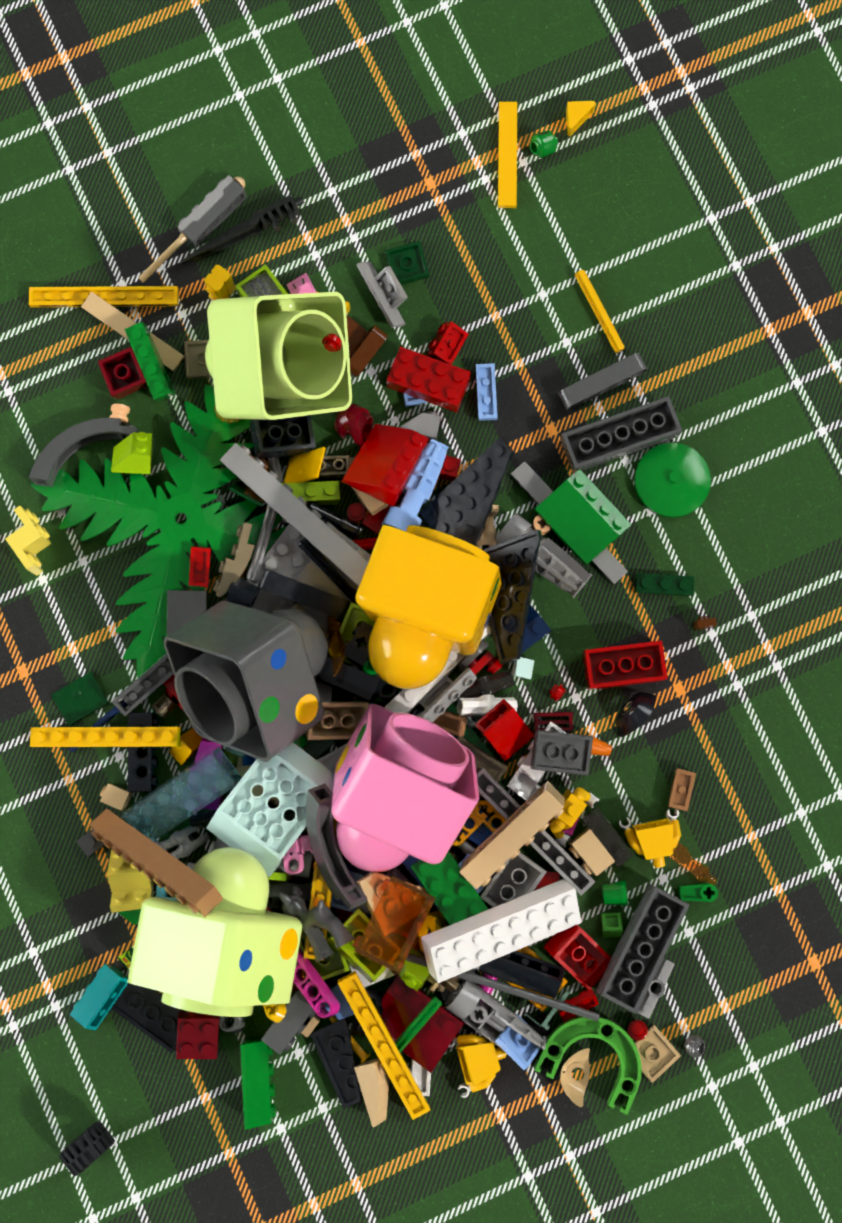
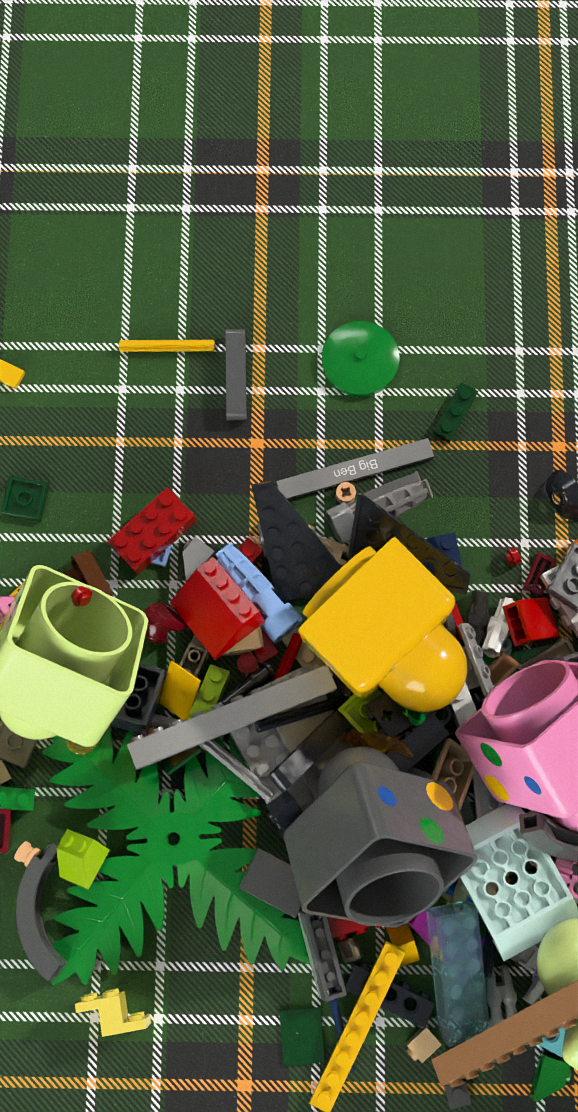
camera: 65 degrees left, 5 degrees down
(127, 885) = (524, 1074): light yellow bracket -> none
(199, 566) = (232, 842): red plate -> none
(233, 568) = (250, 808): dark tan slope -> none
(385, 290) = (42, 529): light grey bracket -> none
(447, 342) = (124, 497): red bracket -> none
(486, 392) = (191, 484): light blue plate -> none
(493, 665) = (462, 602): red plate -> none
(523, 668) = (477, 577): light aqua tile -> none
(582, 517) = (359, 452): green slope -> none
(621, 434) = (296, 382): dark grey brick -> none
(624, 665) = (517, 482): red brick -> none
(704, 622) = (509, 393): reddish brown plate -> none

